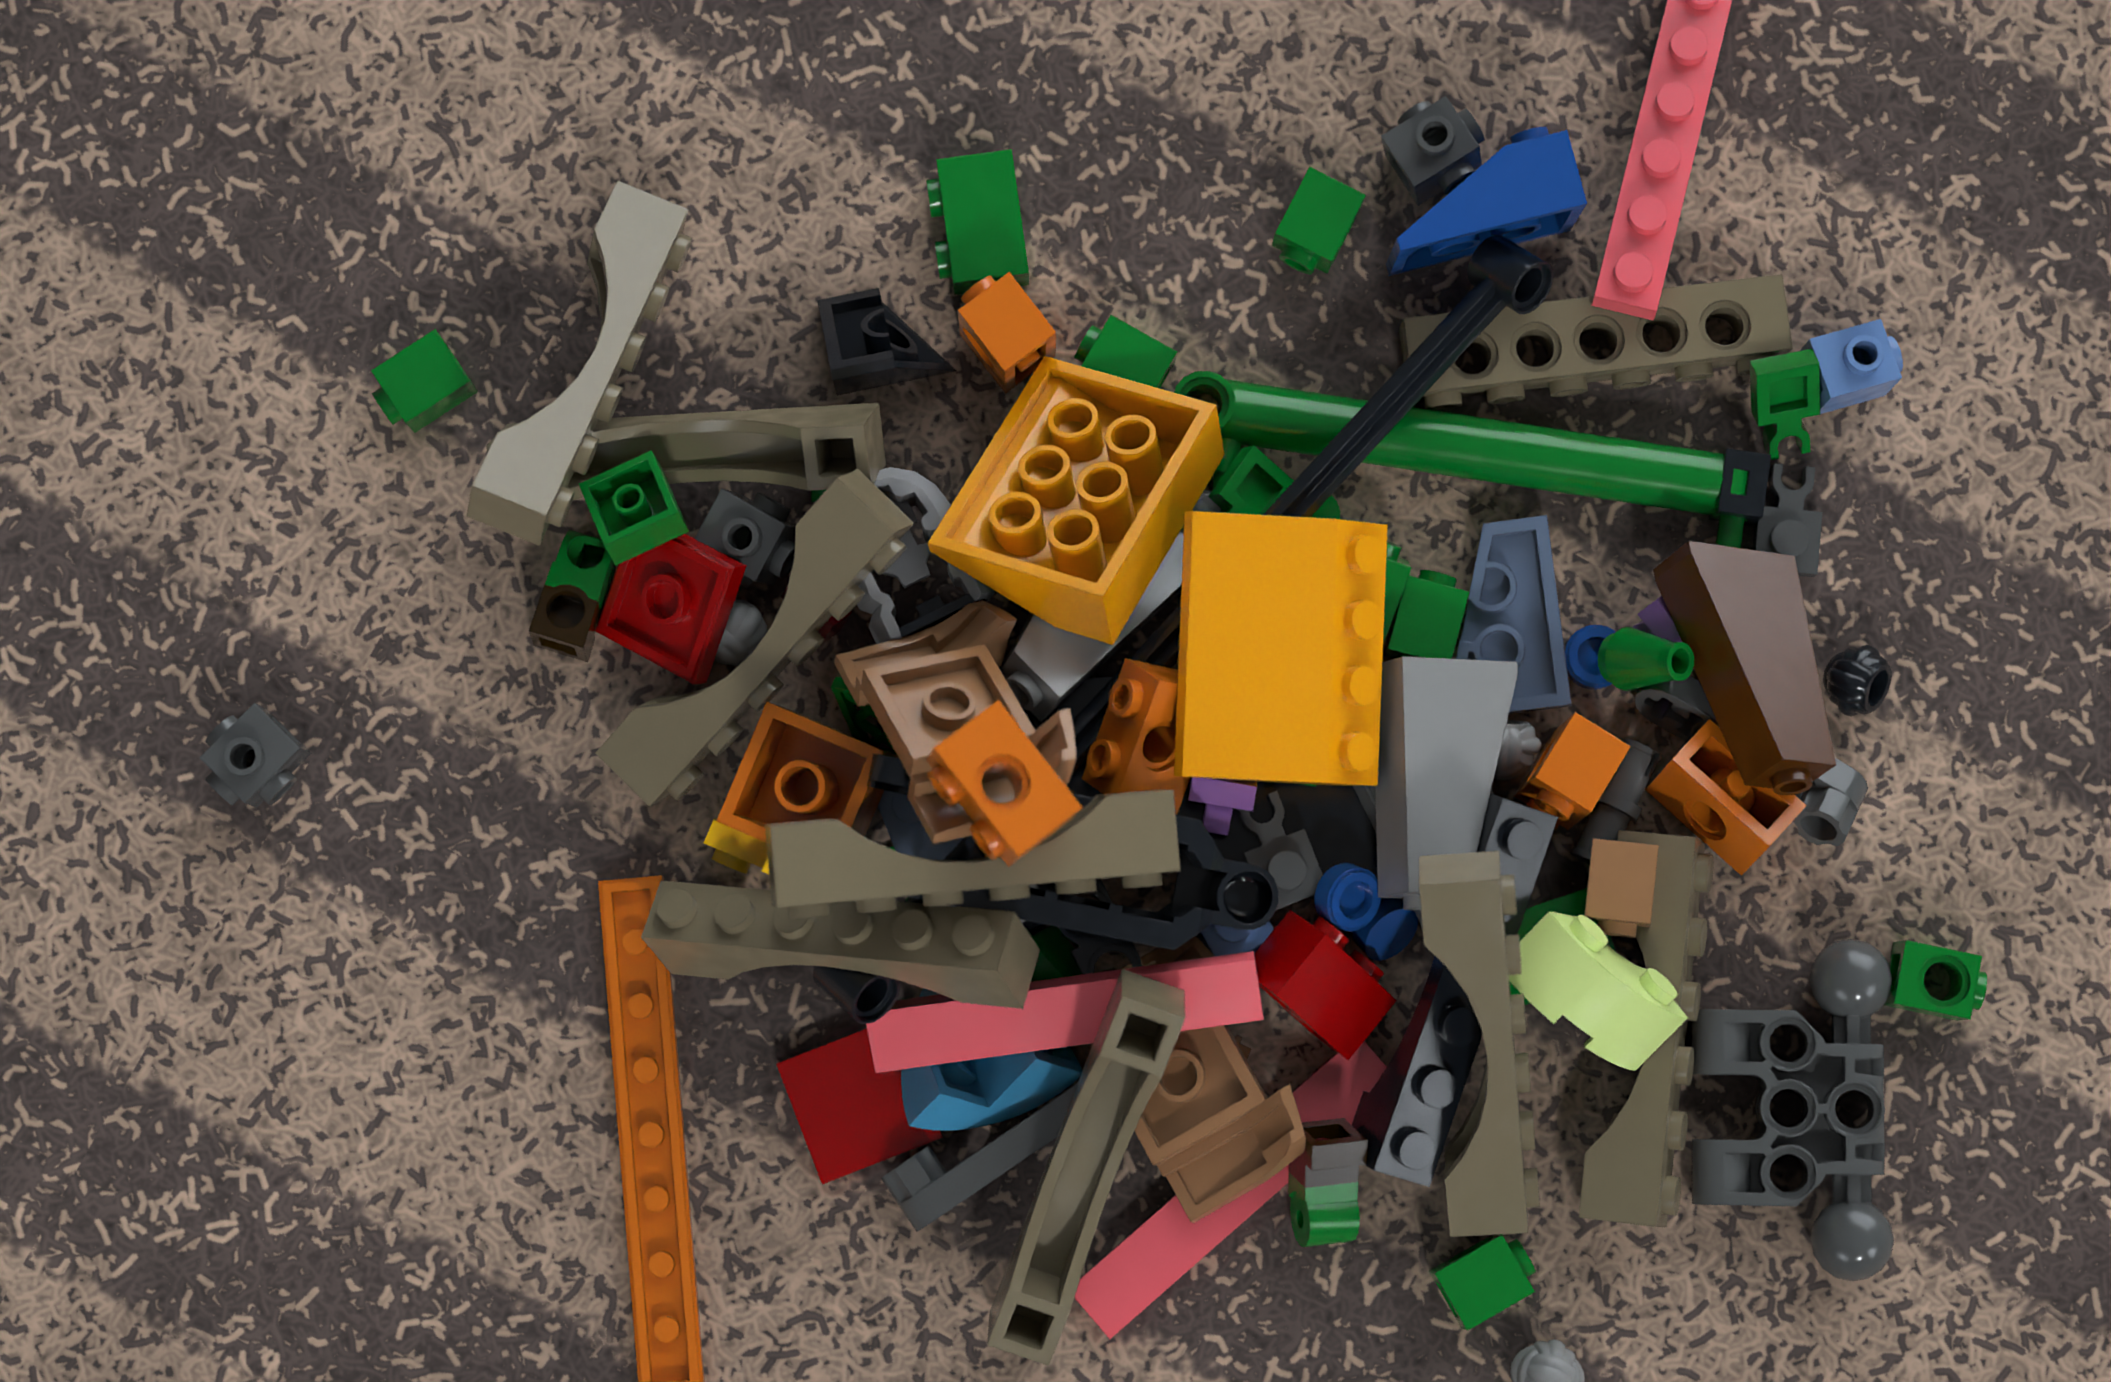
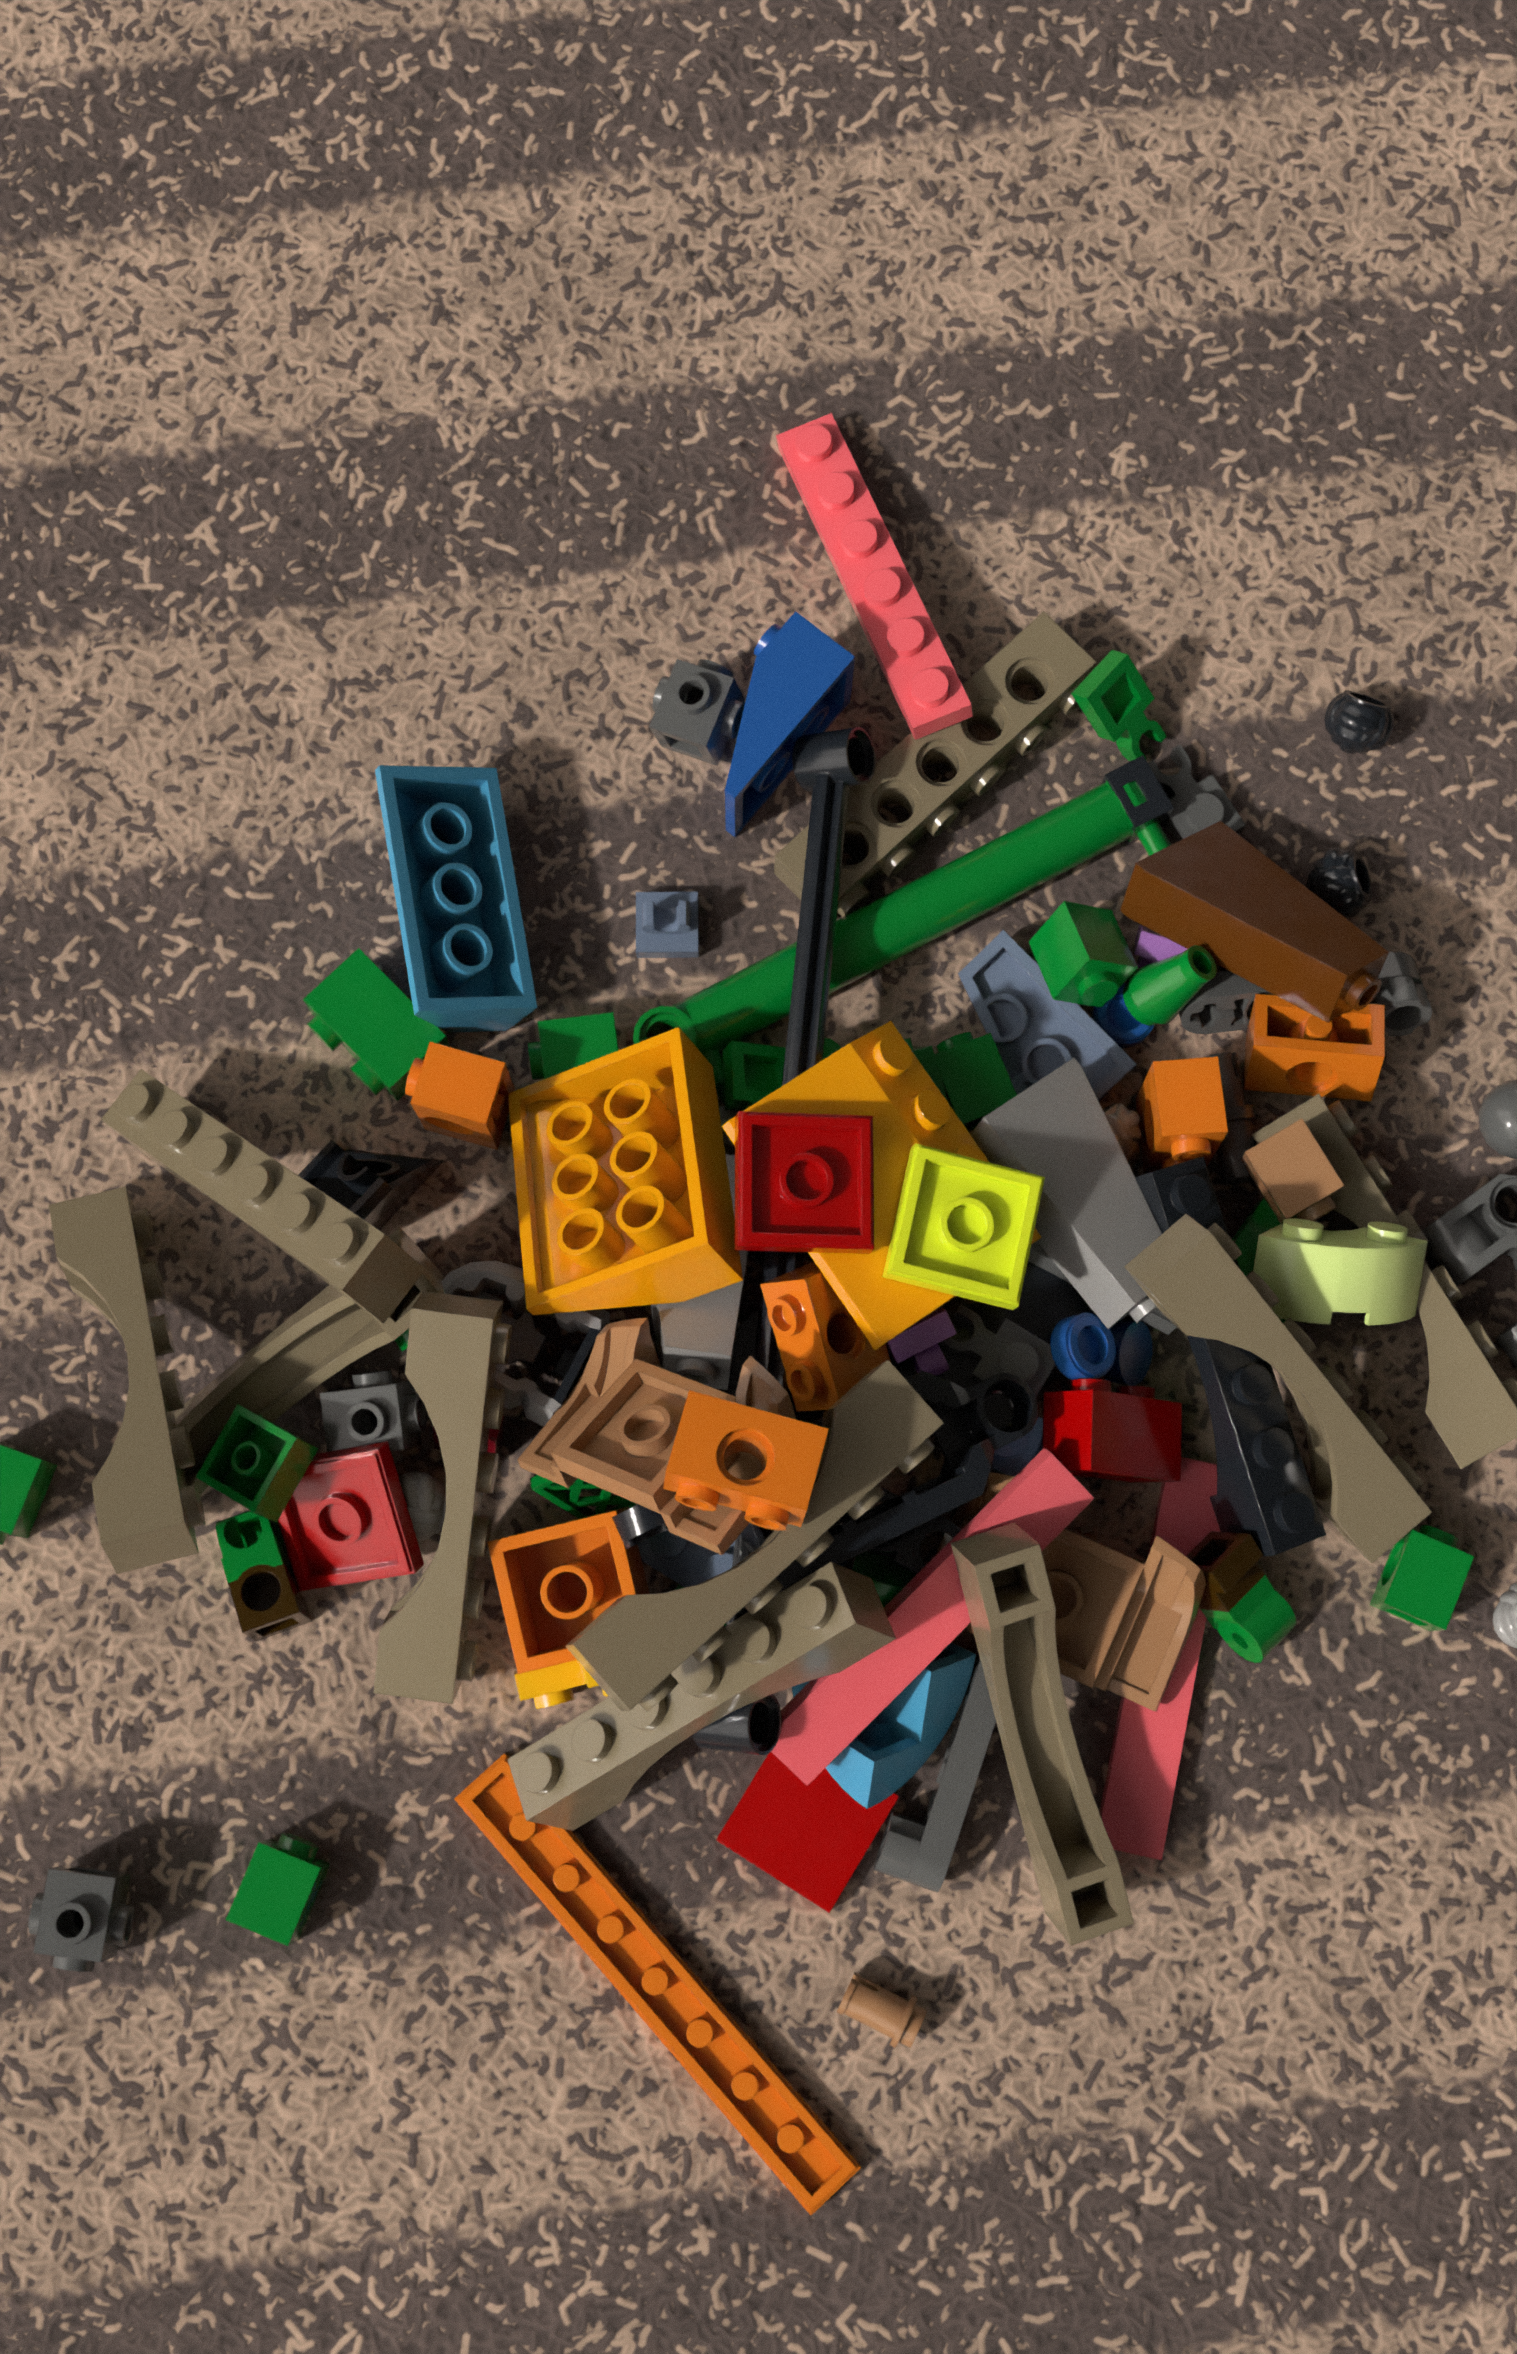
camera: 35 degrees left, 5 degrees down
(416, 849) = (279, 1888): none -> green brick
(789, 299) = (265, 1195): none -> dark tan arch
(808, 1288) = (883, 2010): none -> medium nougat pin
(1120, 164) = (456, 896): none -> dark azure slope
(1215, 604) = (804, 1182): none -> red tile
(1278, 308) = (667, 925): none -> sand blue tile
(1316, 731) = (964, 1227): none -> neon yellow tile
(1317, 222) = (648, 833): green brick -> none
(1594, 583) = (1082, 954): none -> green brick
(1856, 365) = (1155, 637): medium blue brick -> none
(1979, 557) = (1358, 722): none -> black piece

